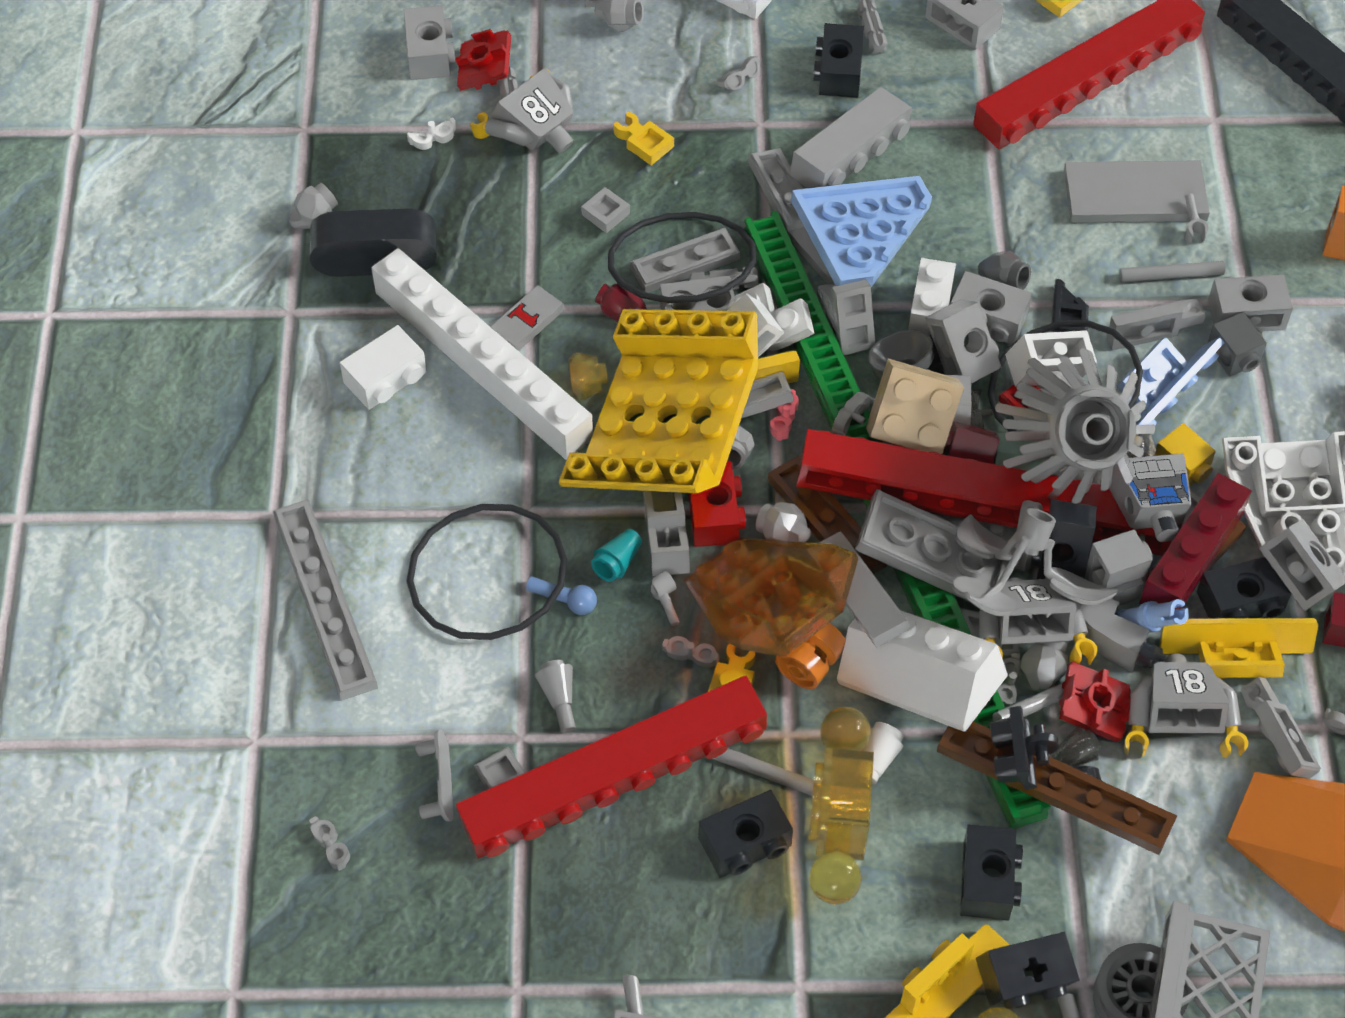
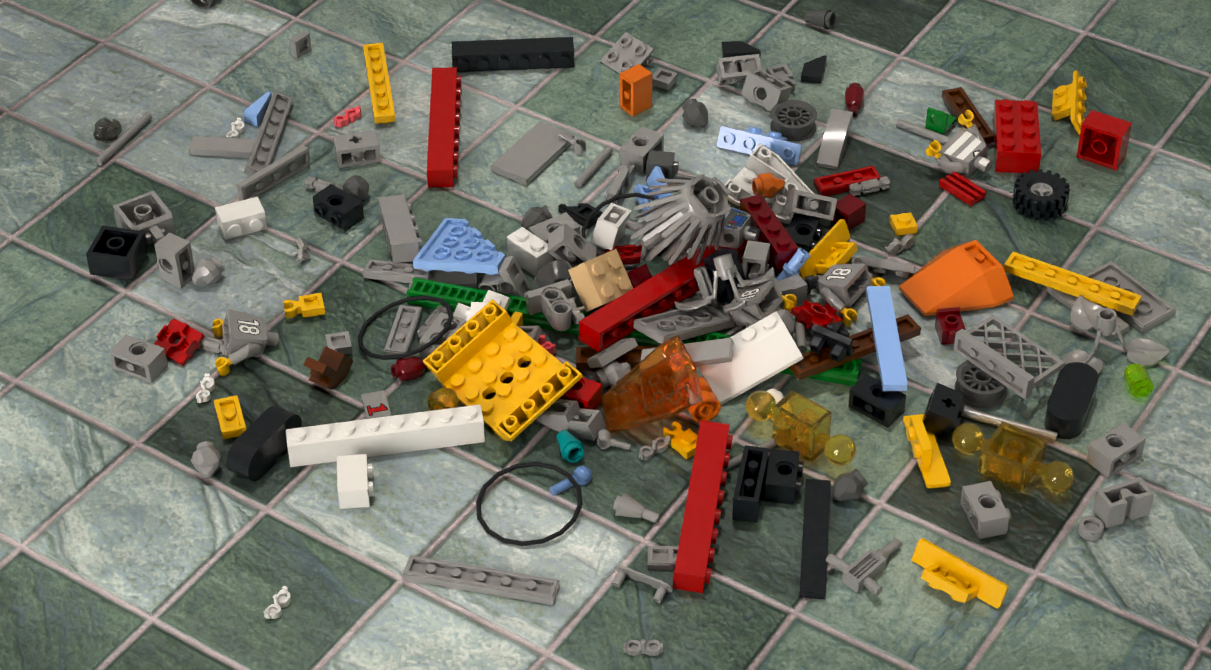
camera: 55 degrees left, 15 degrees down
(135, 420) = (281, 600): none -> white piece
(402, 183) = (230, 416): none -> yellow plate
(550, 229) = (329, 369): none -> reddish brown brick
(667, 939) = (815, 539): none -> black tile
(679, 805) = (750, 484): none -> black brick
(790, 929) = (849, 486): none -> dark grey rock
(805, 501) = (612, 352): none -> light grey tile
(830, 389) = (553, 303): none -> light grey tile
(890, 56) = (357, 187): none -> dark grey rock
(1094, 814) = (886, 338): none -> light blue tile
(1238, 883) = (947, 323): none -> dark red brick
(1292, 489) = (767, 185): none -> orange rock

